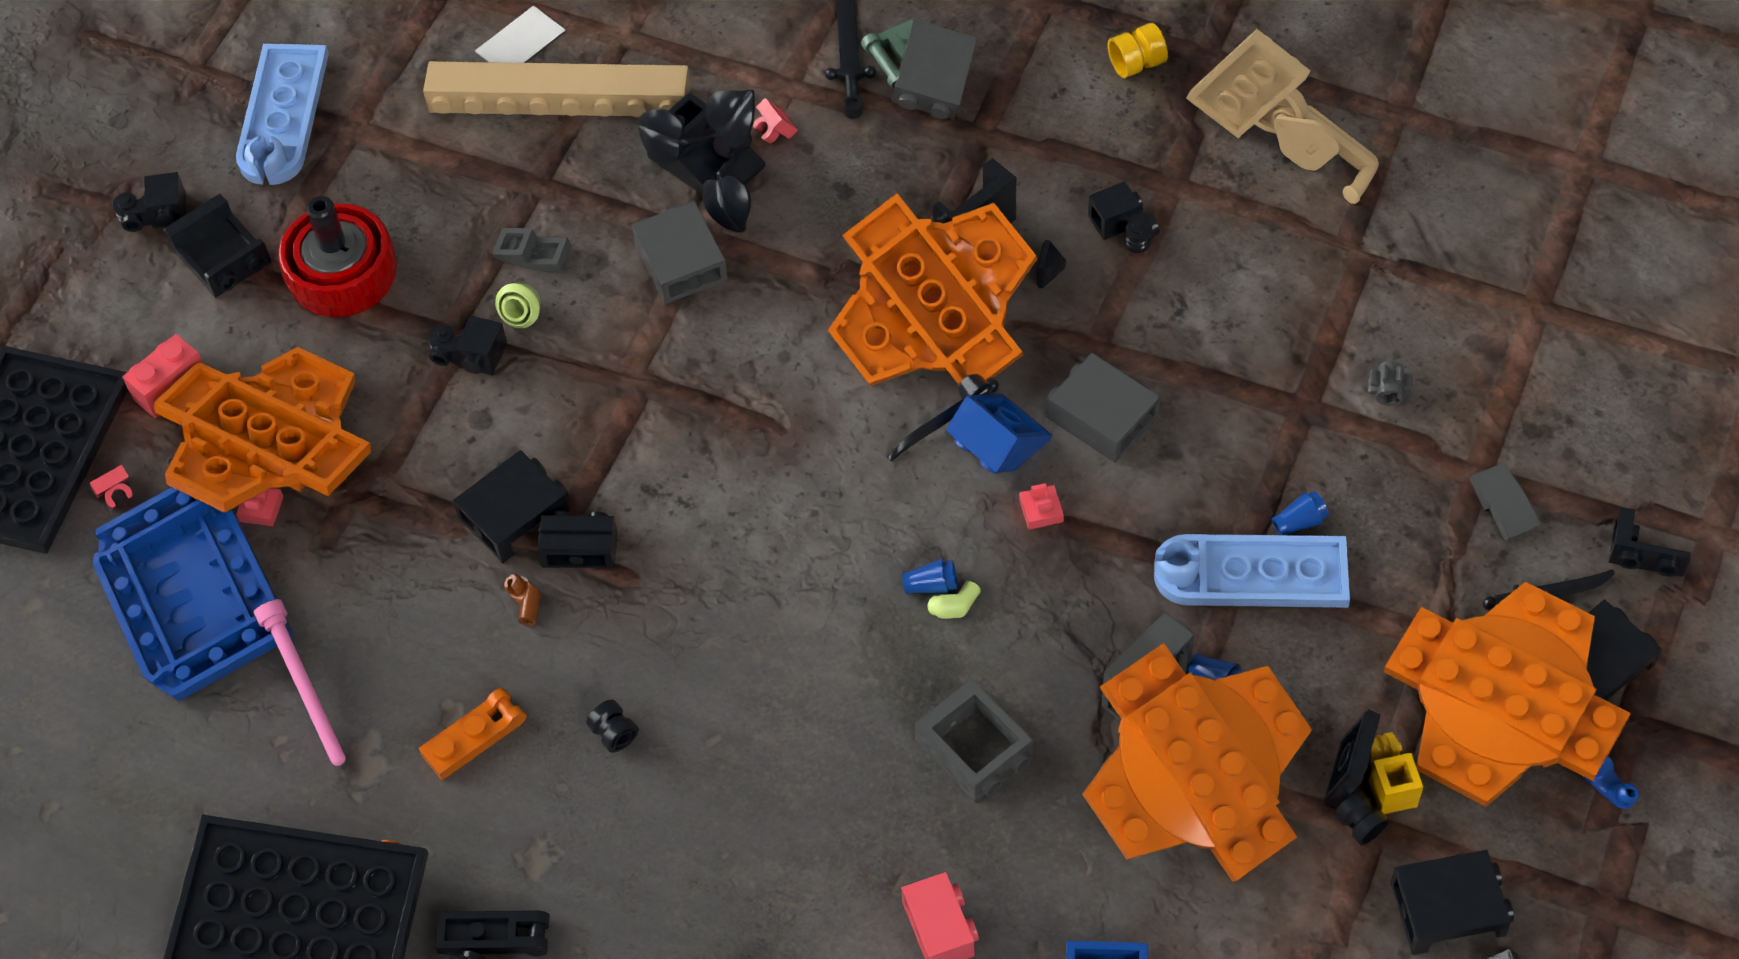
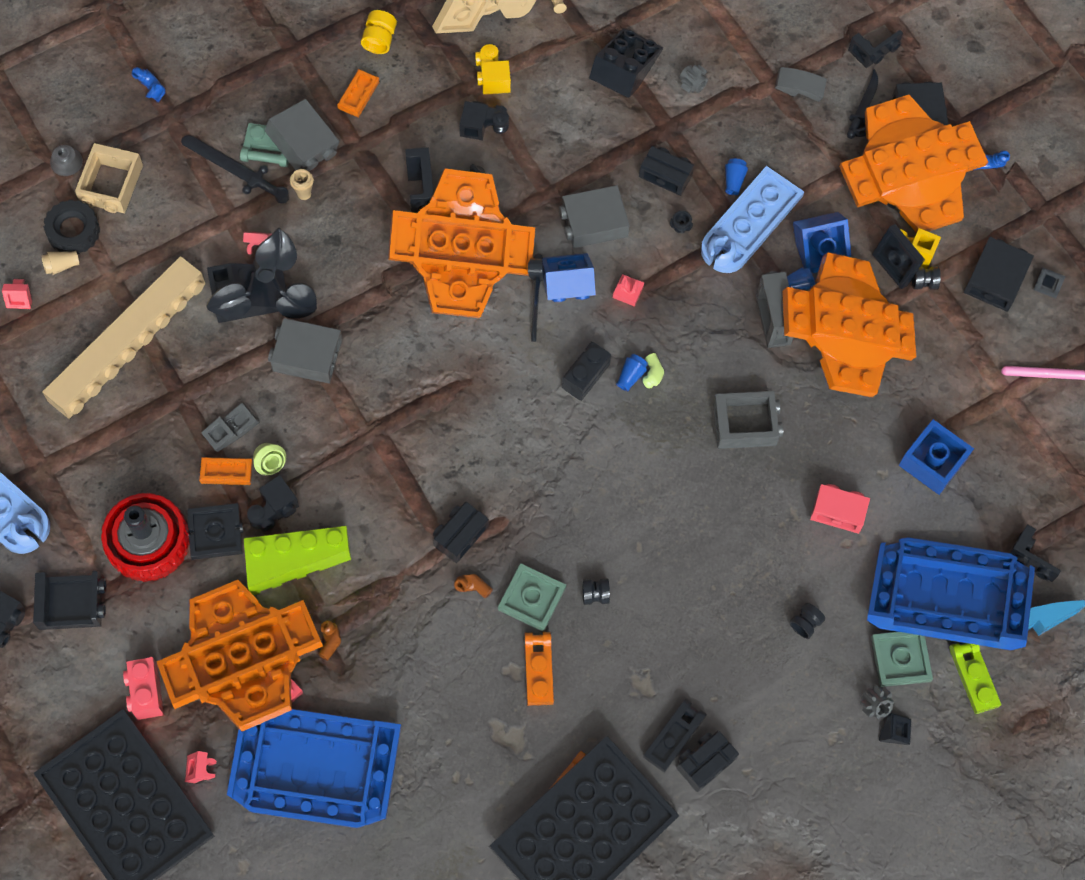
camera: 60 degrees left, 10 degrees up
(272, 617) = (388, 726): bright pink piece -> none
(354, 508) = (332, 639): none -> dark orange arm
(396, 317) = (215, 531): none -> black plate
(412, 396) = (293, 555): none -> lime wedge
(474, 278) = (226, 471): none -> orange plate
(509, 503) = (407, 551): black panel -> none
(521, 38) = (60, 333): white sticker -> none
(554, 666) = (532, 597): none -> sand green plate
(876, 109) = (302, 183): none -> tan cone
(888, 529) = (586, 371): none -> black brick
(1045, 86) = (358, 93): none -> orange plate
(1187, 493) = (681, 216): none -> black plate
(1196, 186) = (494, 73): none -> yellow brick
(1237, 438) = (666, 170): none -> black brick
(1305, 663) = (819, 236): none -> blue slope
(1343, 302) = (625, 62): none -> black slope

